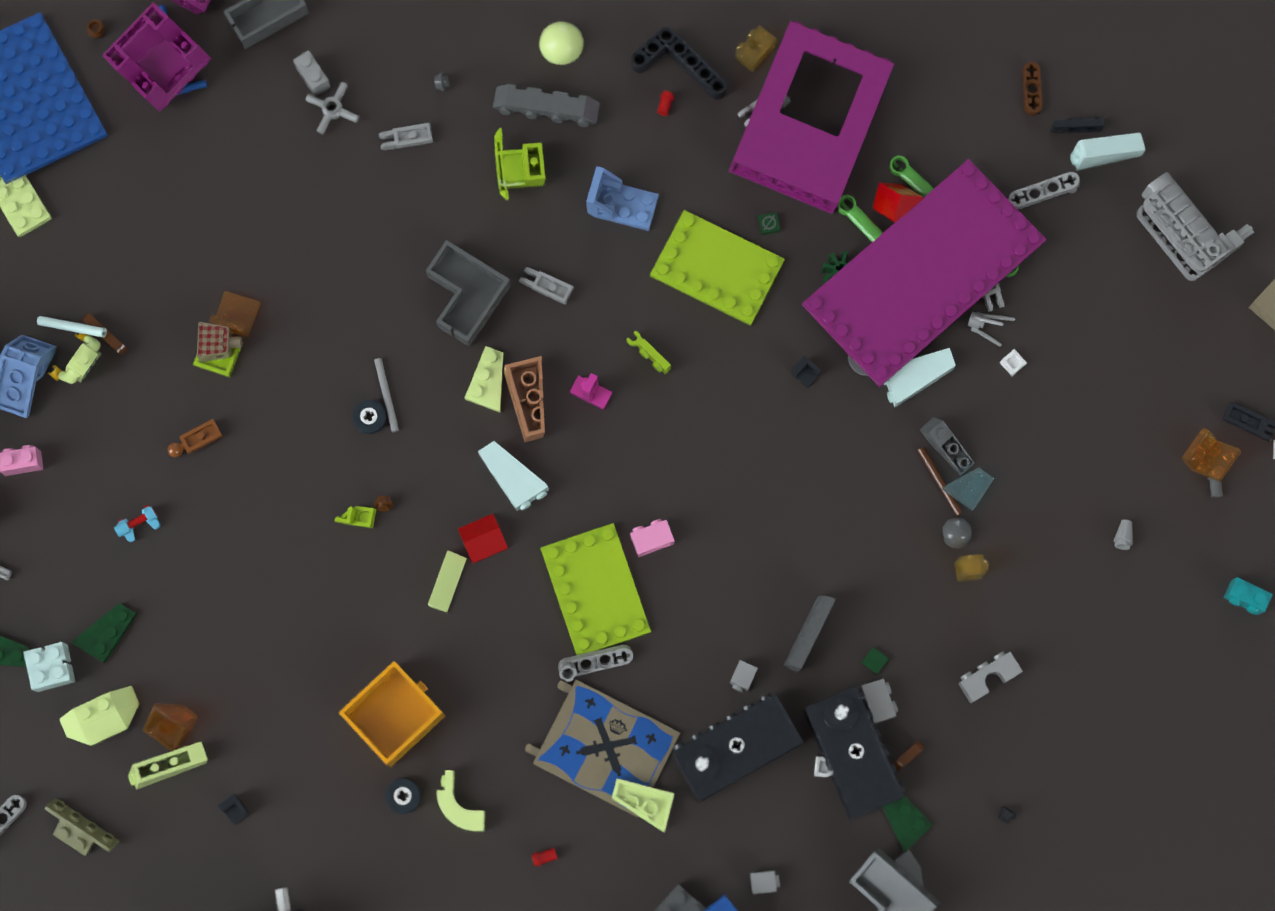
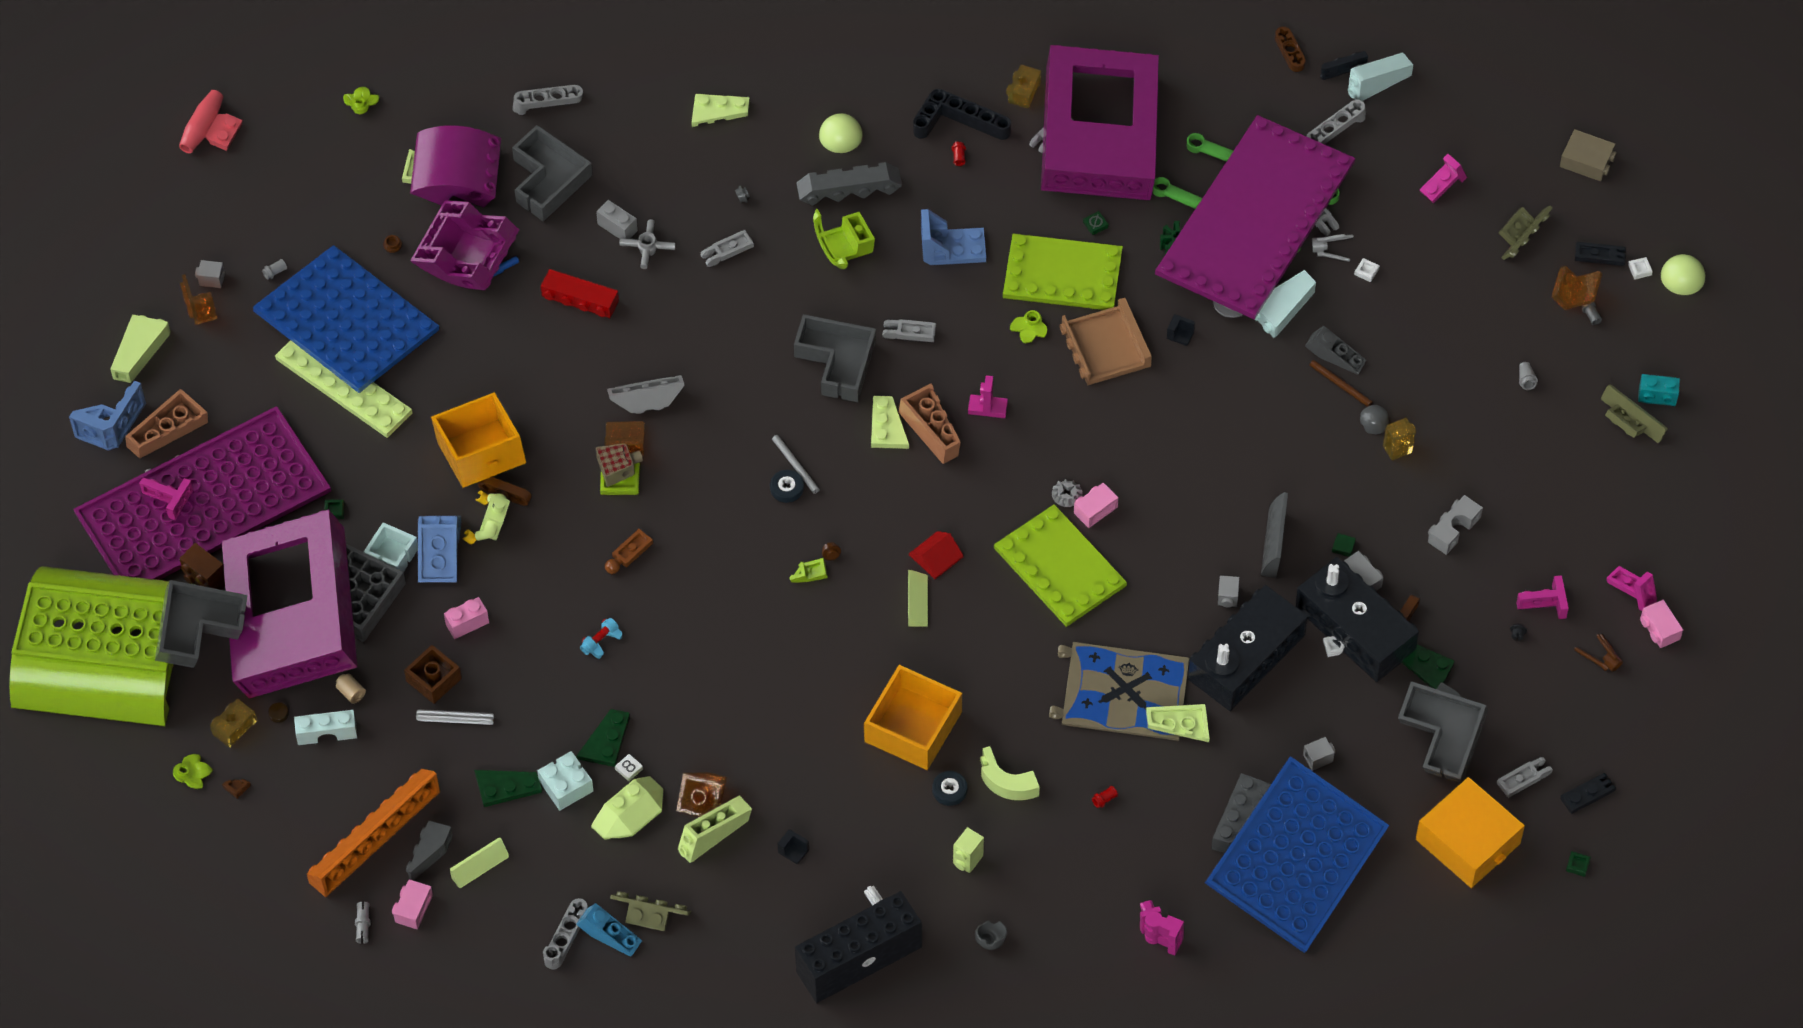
camera: 20 degrees left, 20 degrees down
(33, 840) = (608, 930): none -> dark azure slope
(72, 326) = (472, 490): light aqua piece -> none
(92, 277) = (478, 439): none -> light orange container
(115, 670) = (628, 767): none -> white tile
(248, 141) = (579, 293): none -> red brick
(270, 273) = (647, 394): none -> light grey wedge
(390, 876) = (968, 850): none -> yellowish green brick
(513, 477) = (943, 493): light aqua slope -> none
(595, 665) = (1085, 621): light grey beam -> none
(626, 521) = (1064, 499): none -> light grey gear
(648, 351) = (1030, 356): lime plate -> none
(660, 320) = (1027, 328): none -> lime plate
(728, 361) = (1106, 343): none -> medium nougat panel
(894, 200) = (1203, 169): red slope -> none
(969, 487) = (1370, 379): clear light blue wing -> none
(1048, 787) = (1546, 598): none -> dark pink bracket
(1086, 876) = (1611, 659): none -> reddish brown plant
(1125, 289) = (1443, 179): none -> dark pink bracket
(1137, 805) = (1638, 587): none -> dark pink bracket
(1148, 857) = (1661, 624): none -> bright pink brick
(1181, 368) = (1520, 227): none -> olive bracket
(1186, 228) = (1476, 117): light grey piece -> none
(1208, 616) = (1631, 416): none -> olive bracket

